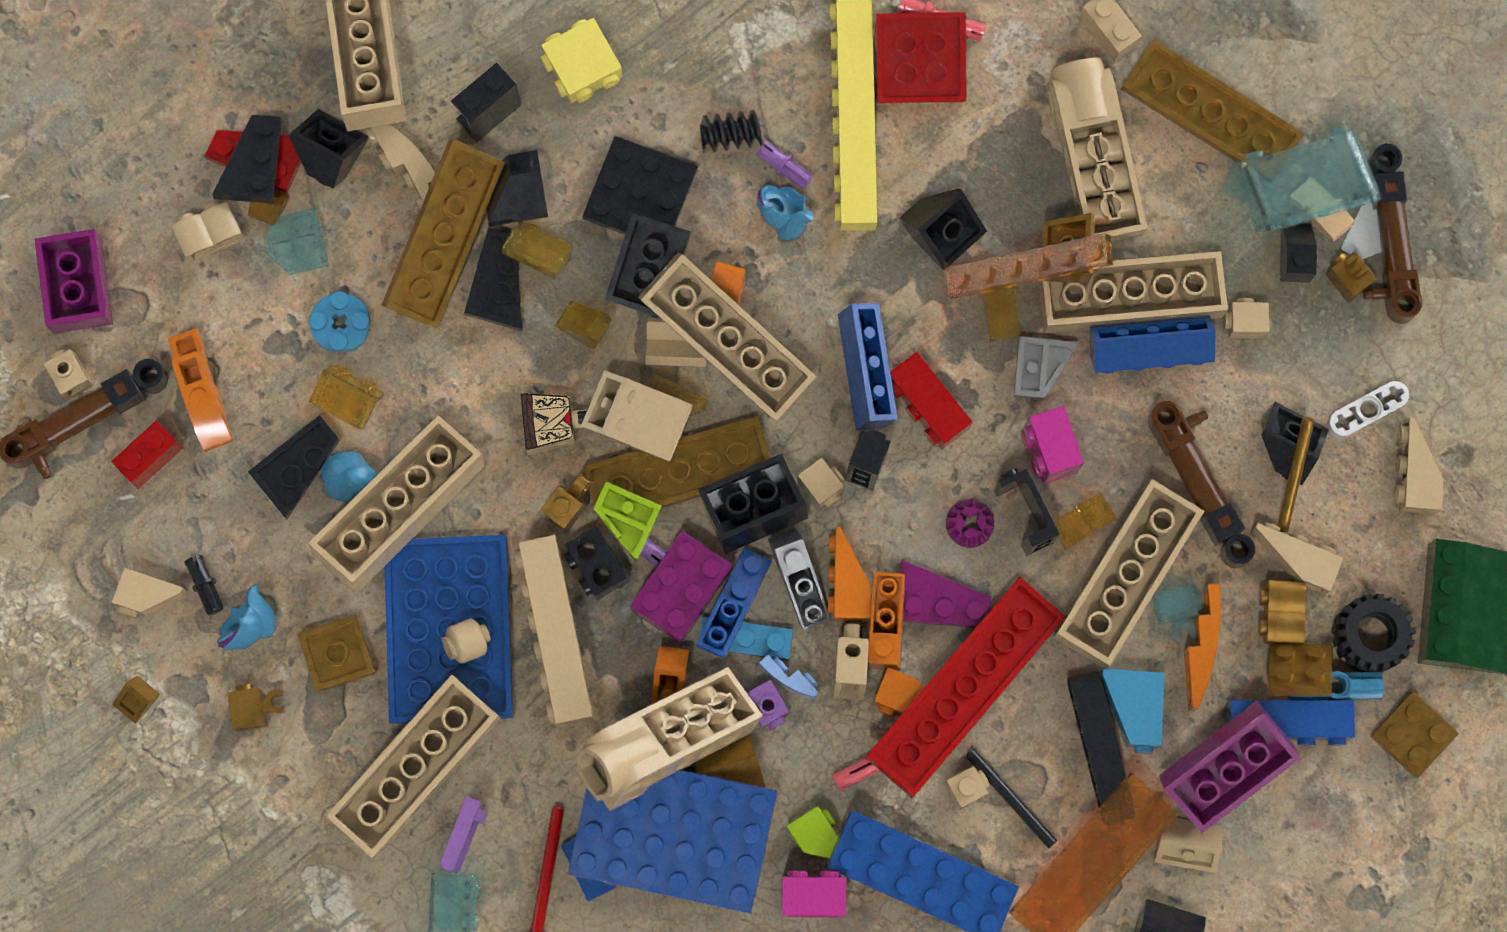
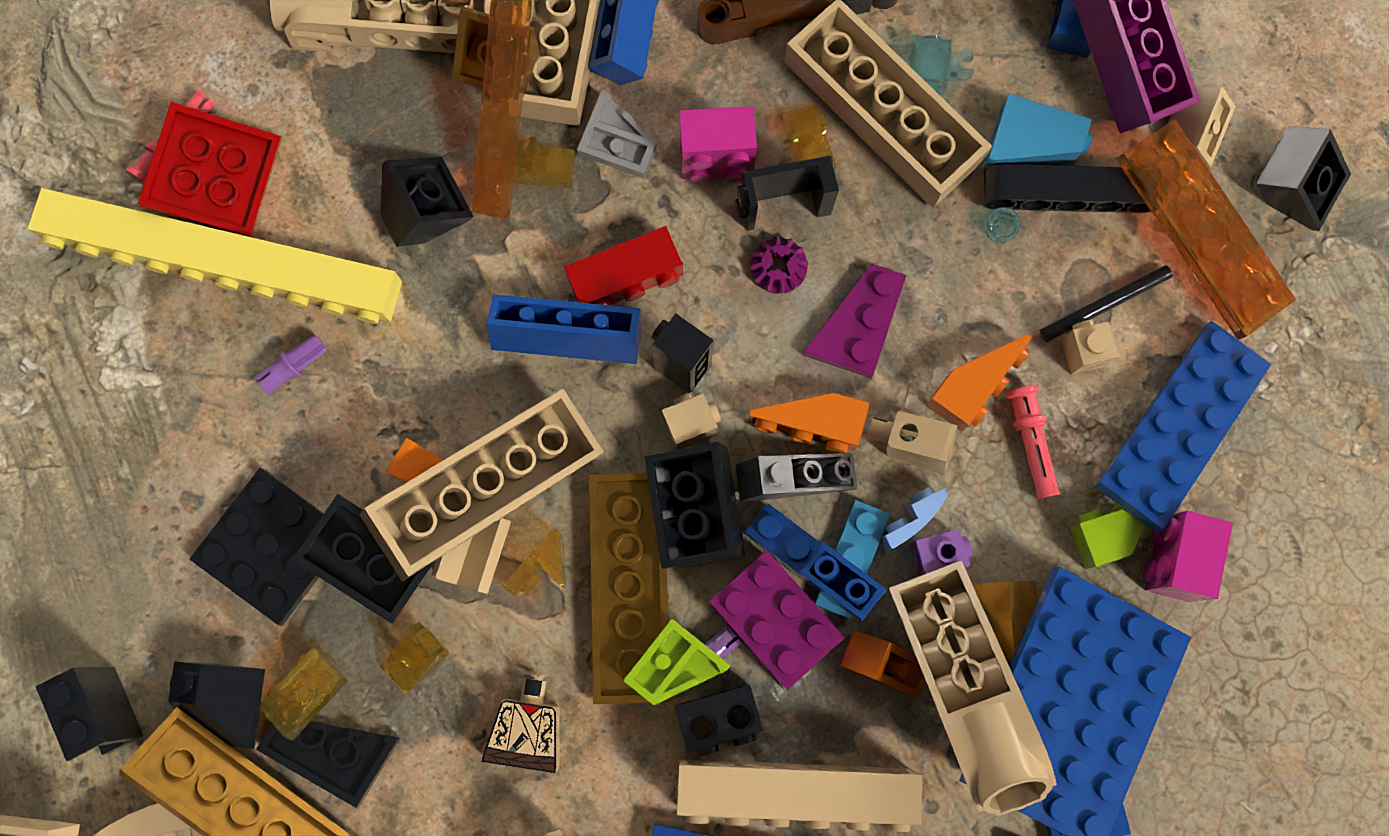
camera: 75 degrees left, 0 degrees up
(565, 504) = (635, 736): pearl gold brick -> none
(581, 61) = (79, 576): light yellow brick -> none
(636, 416) = (551, 620): tan slope -> none
(730, 130) = (227, 416): black piece -> none
(784, 211) = (348, 377): dark azure hair -> none
(886, 621) = (875, 384): orange slope -> none
(965, 687) = (981, 318): red plate -> none
(1061, 691) = (992, 230): none -> clear light blue bush
(1200, 658) = (997, 54): orange slope -> none

